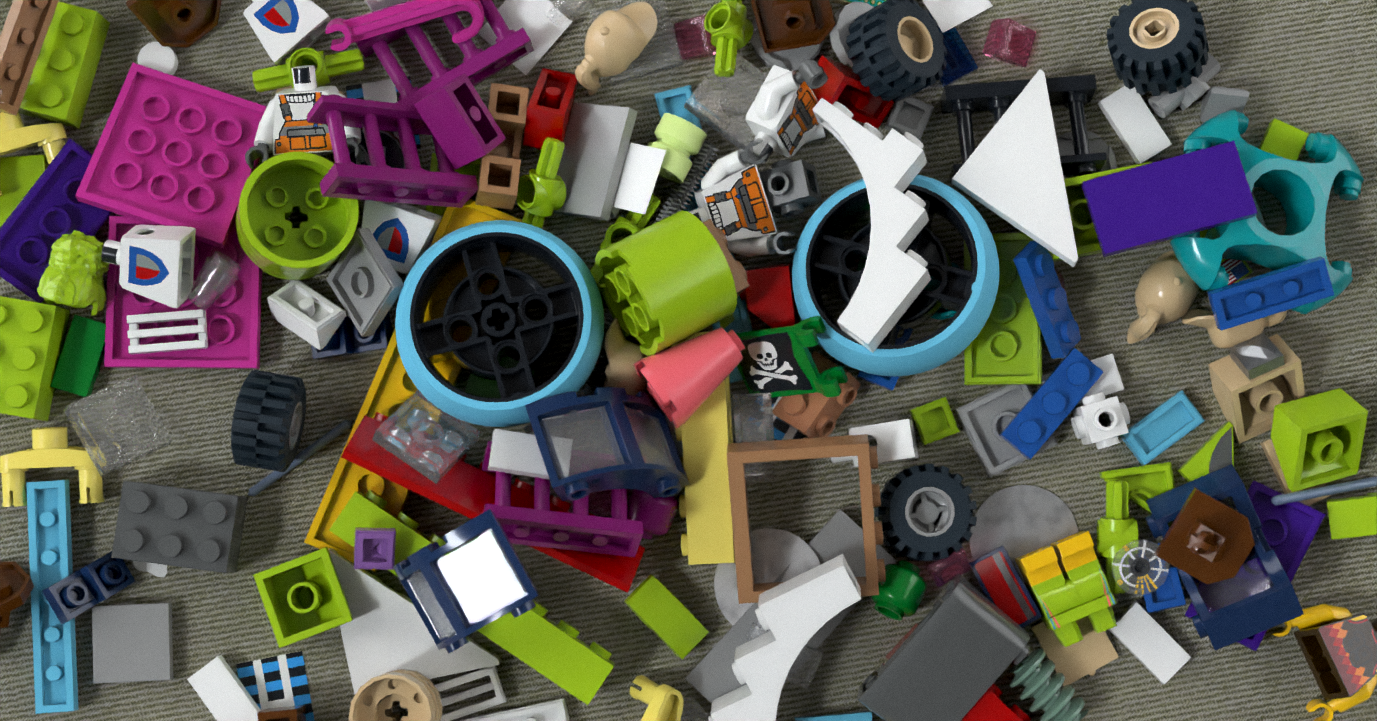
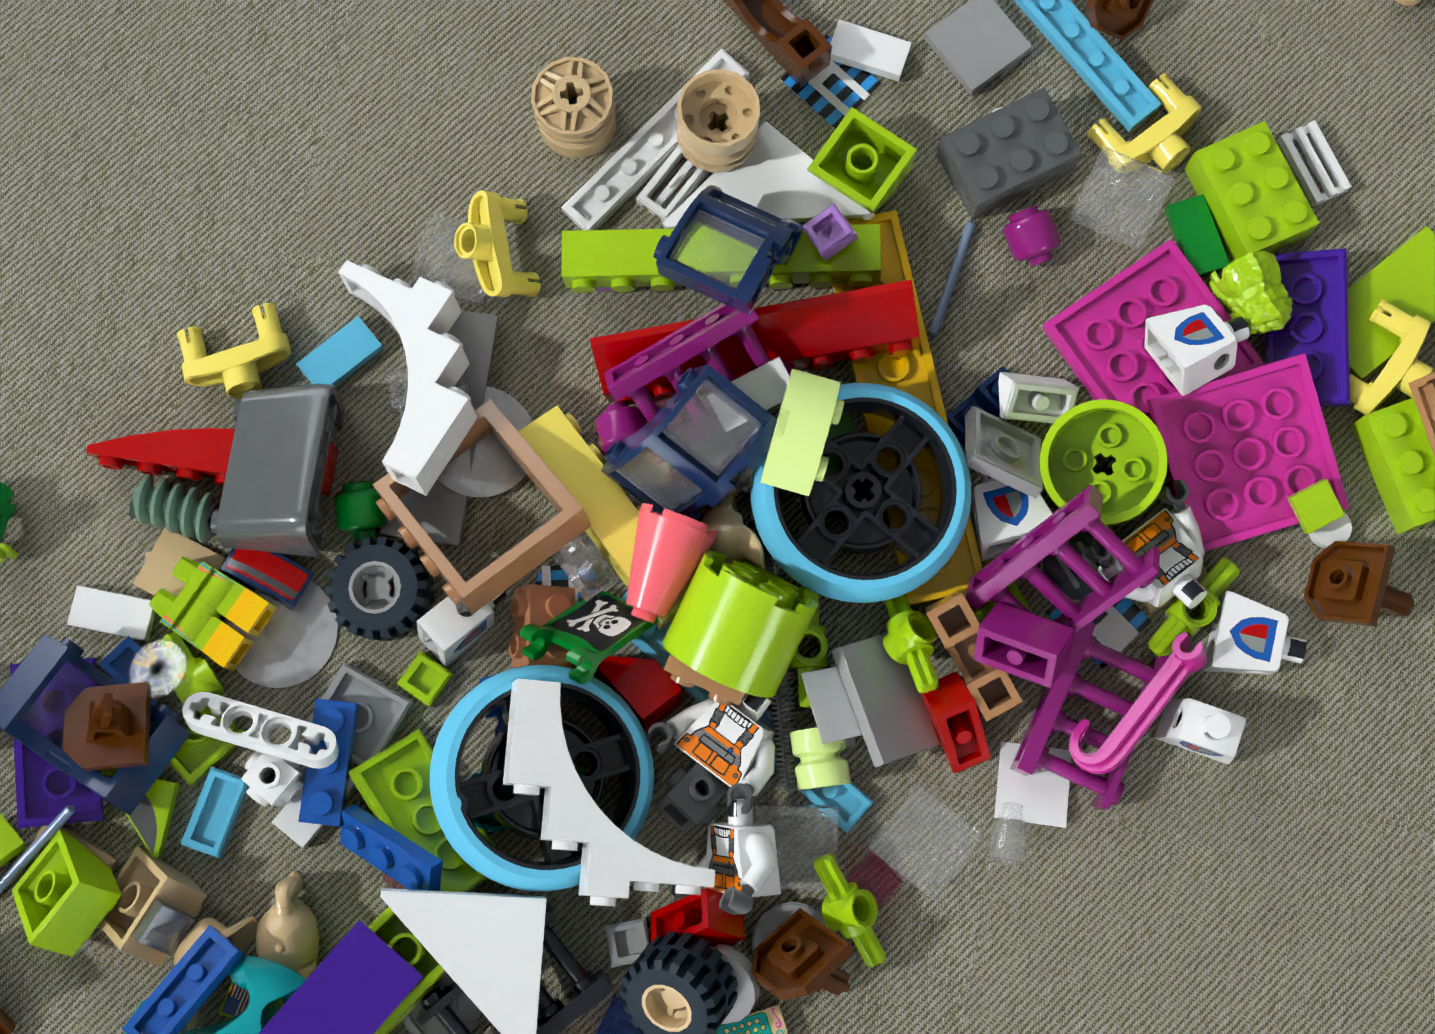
camera: 150 degrees right, 5 degrees down
(88, 587) = (1047, 55): dark blue slope -> none
(134, 332) = (1165, 279): white tile -> none
(157, 79) = (1315, 506): none -> lime tile
(210, 447) = (1031, 235): none -> magenta head
(213, 279) = (1134, 368): clear cone -> none
(268, 420) = (998, 281): black wheel -> none
(426, 437) = (854, 347): clear plate -> none
(516, 386) = (801, 433): none -> yellowish green brick
(615, 43) = (940, 821): tan hair -> none
(666, 616) = (548, 354): lime slope -> none
(946, 569) = (328, 552): clear pink slope -> none
(1093, 456) = (263, 724): none -> white beam

